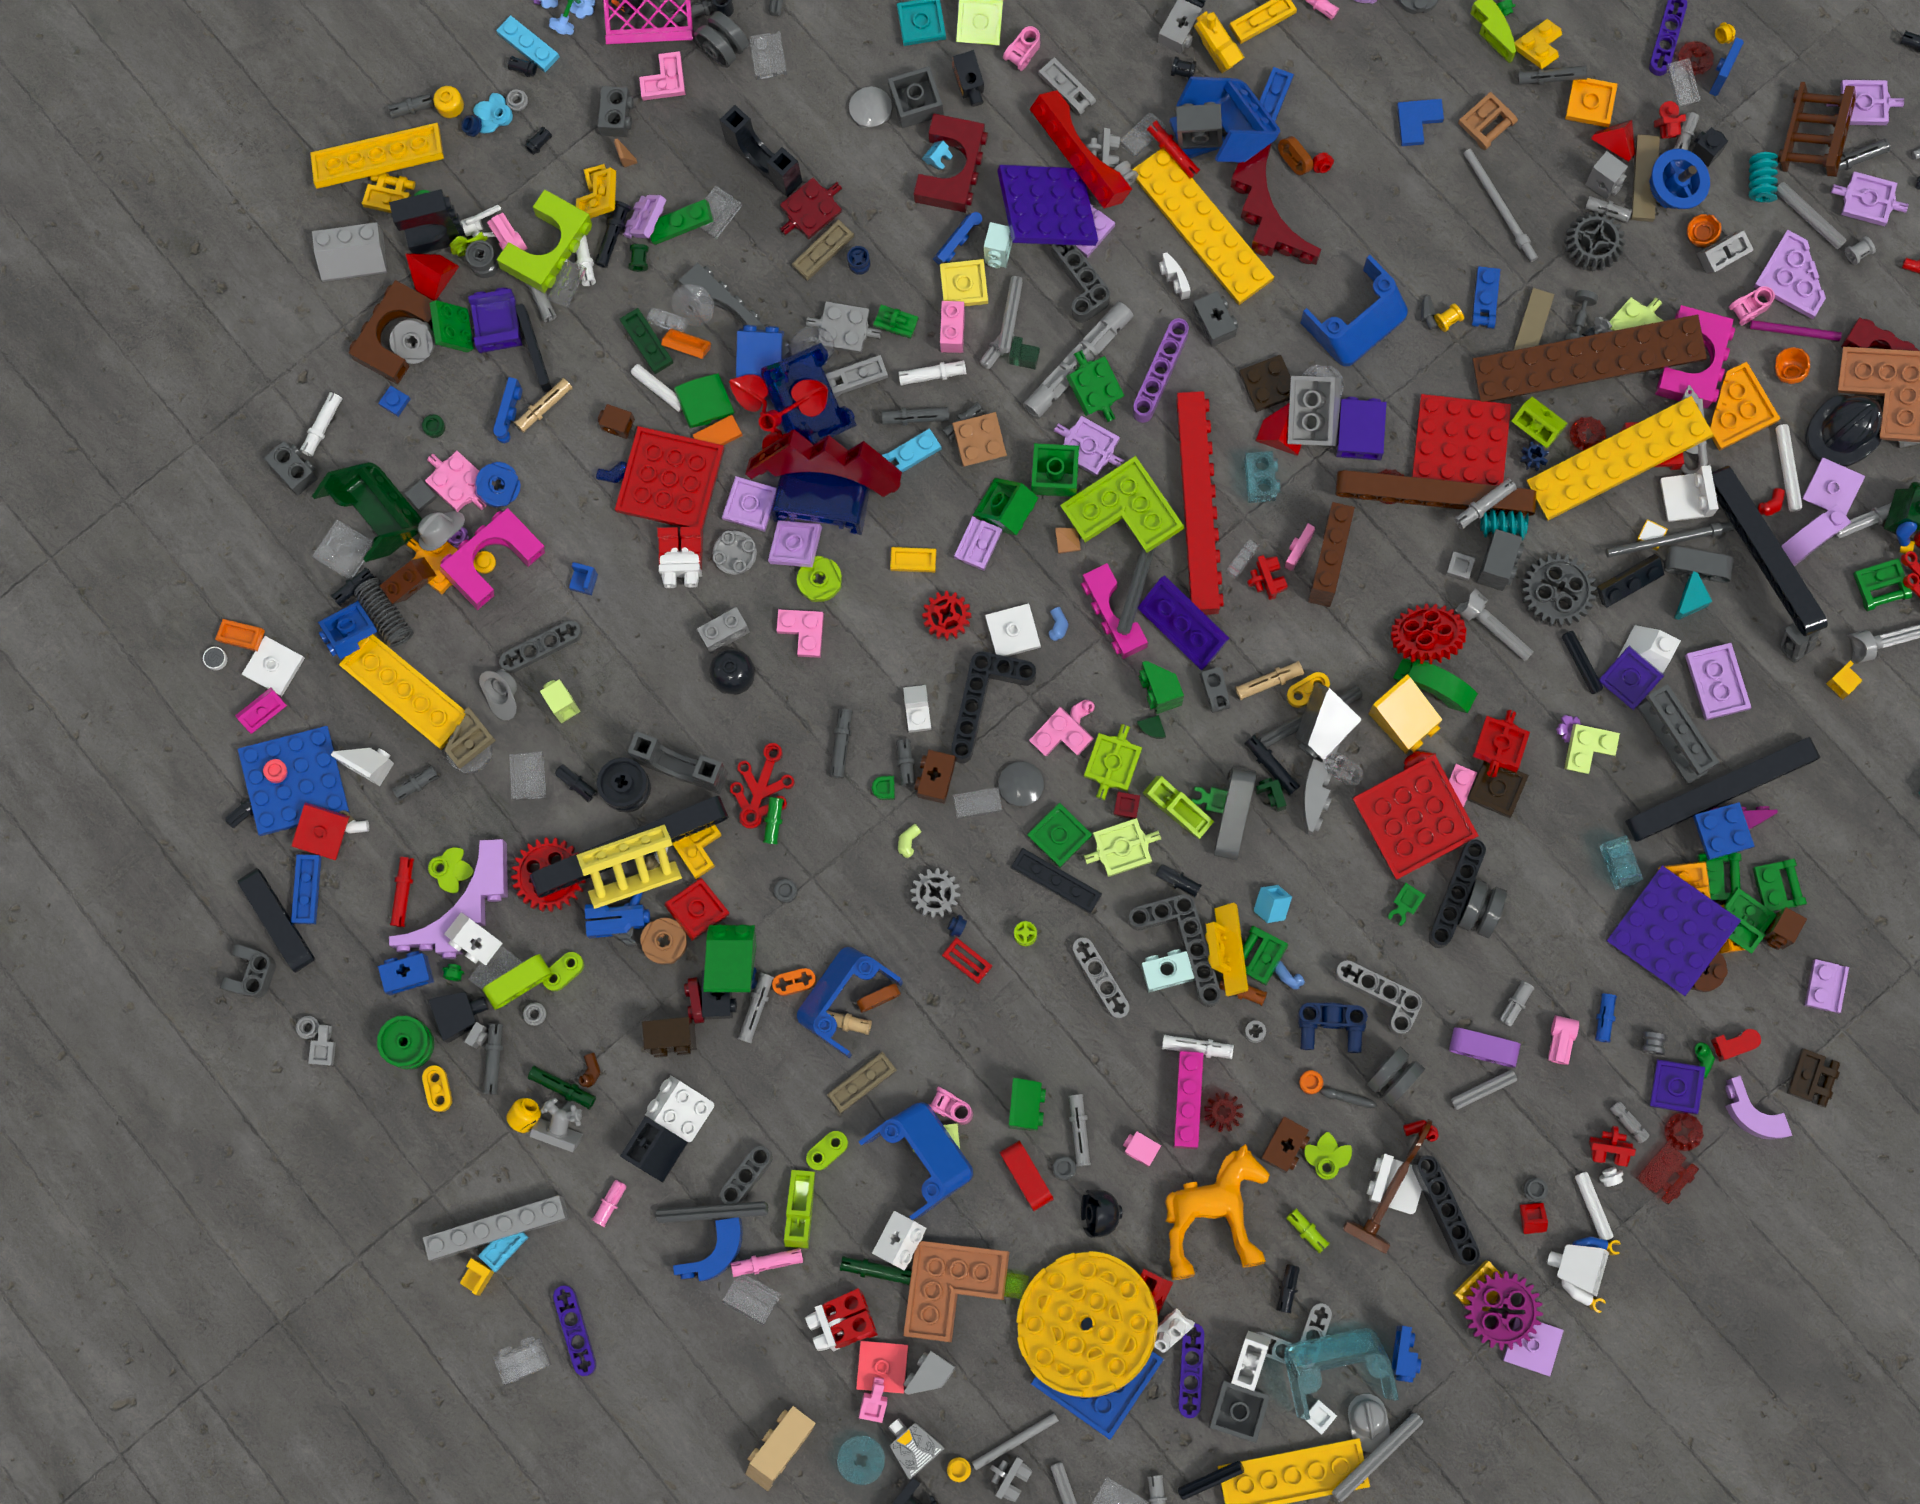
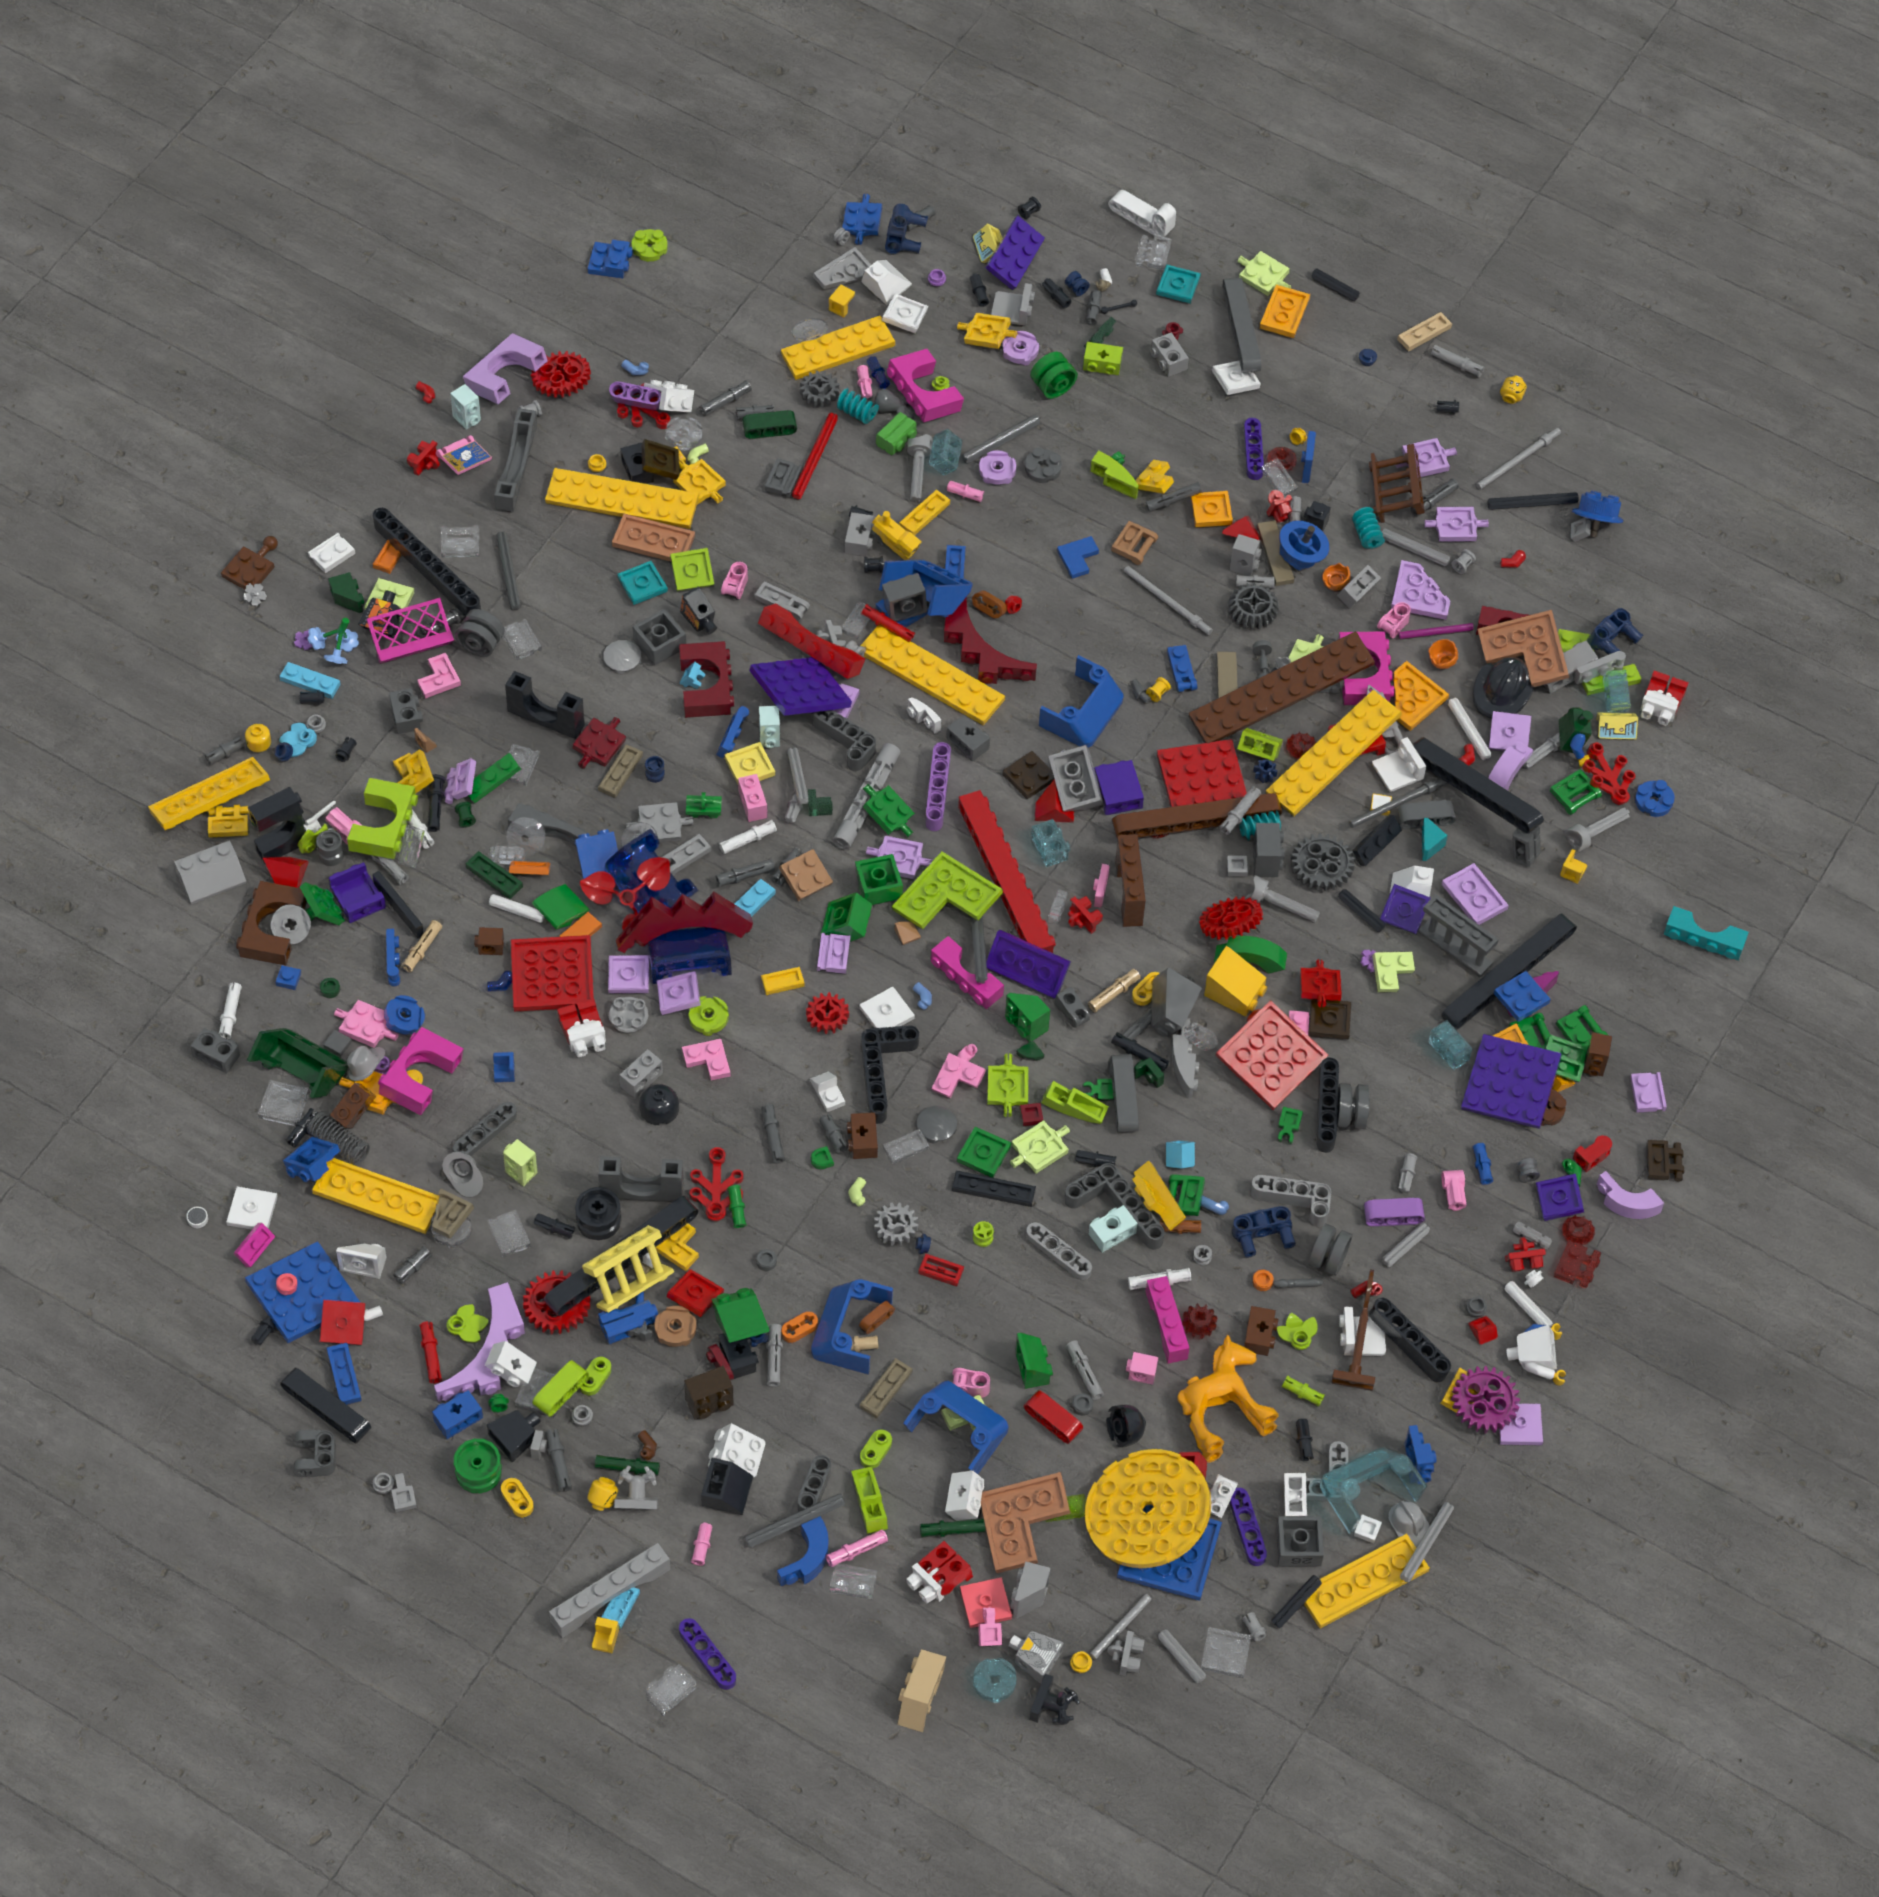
camera: 30 degrees left, 20 degrees down
(240, 635) = (214, 1192): orange tile -> none

